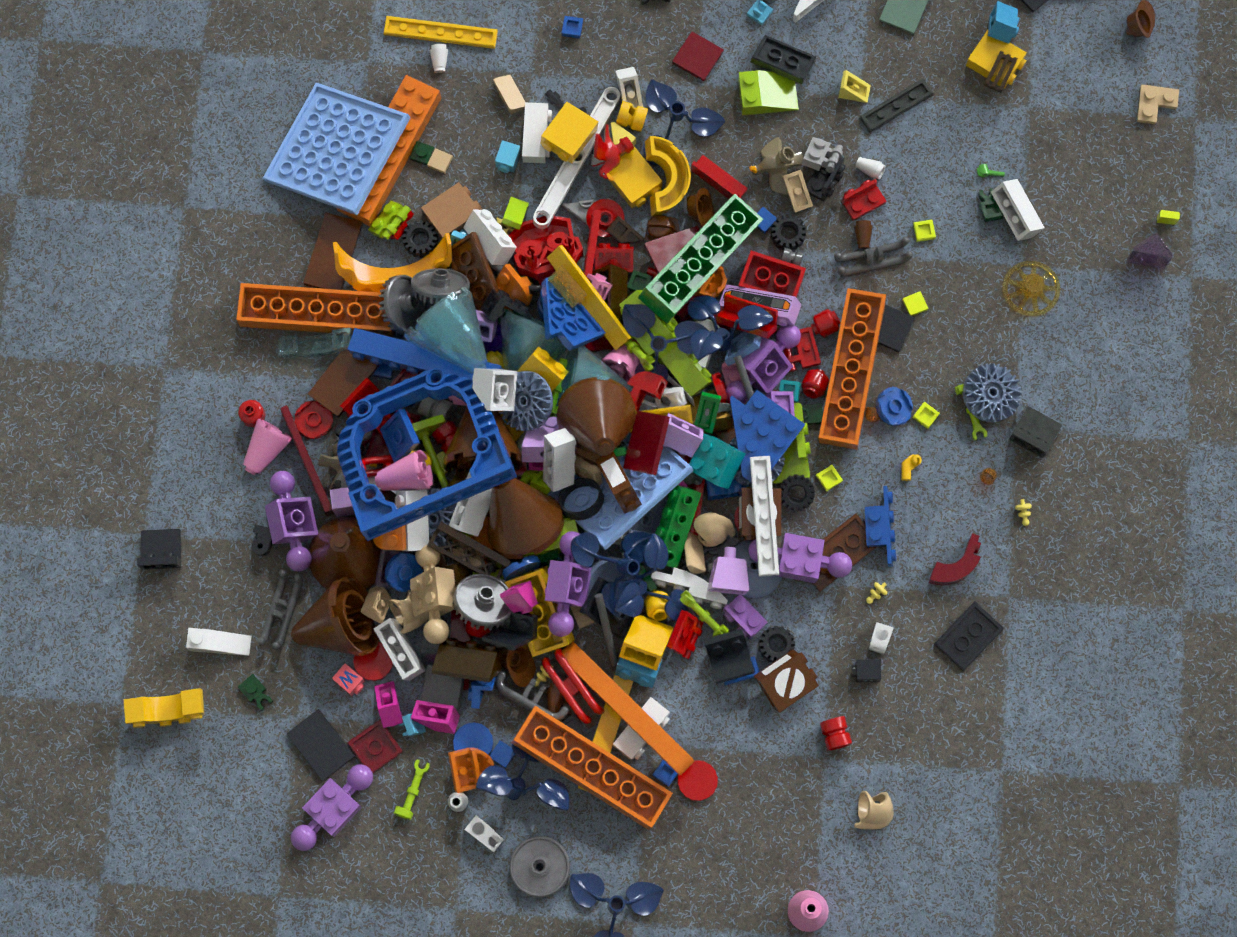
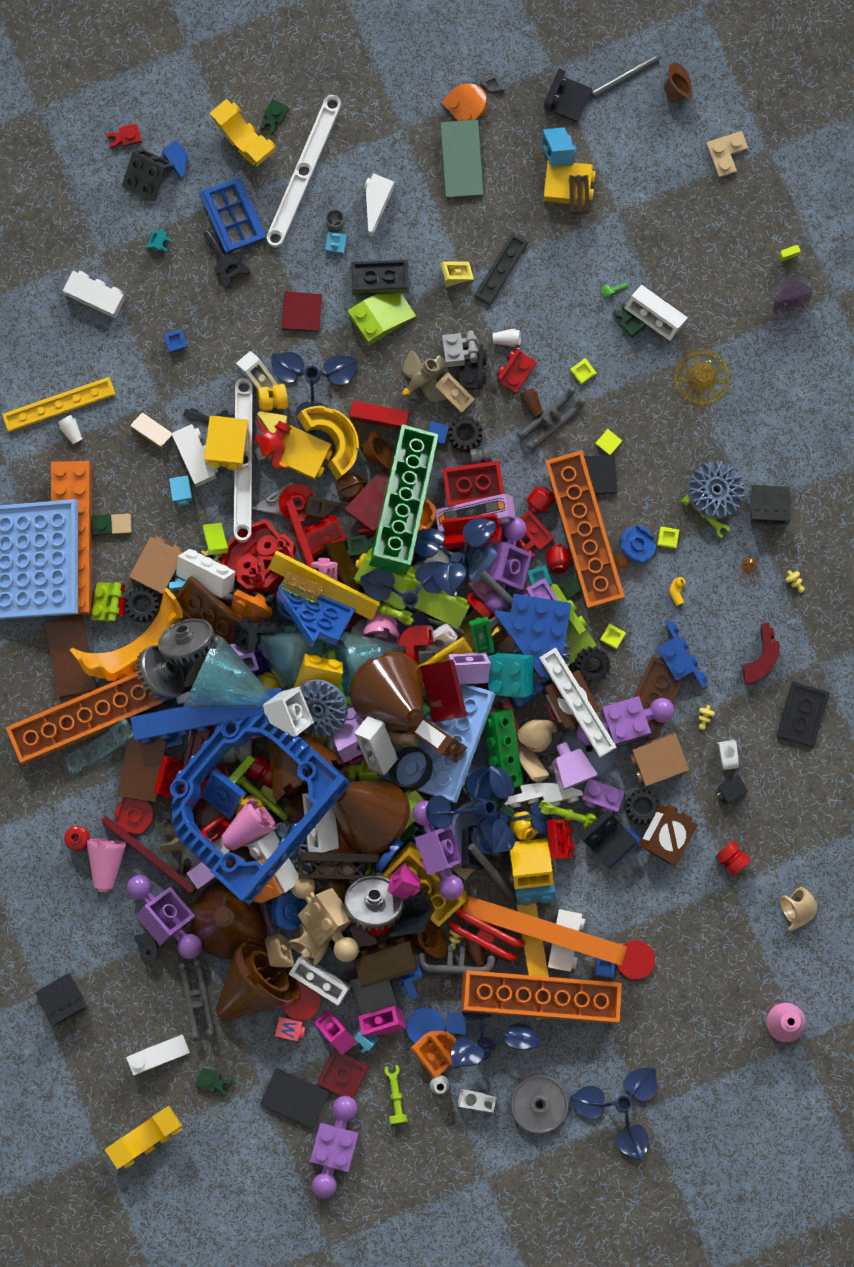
camera: 25 degrees left, 5 degrees up
(813, 608) = (658, 759): none -> medium nougat brick

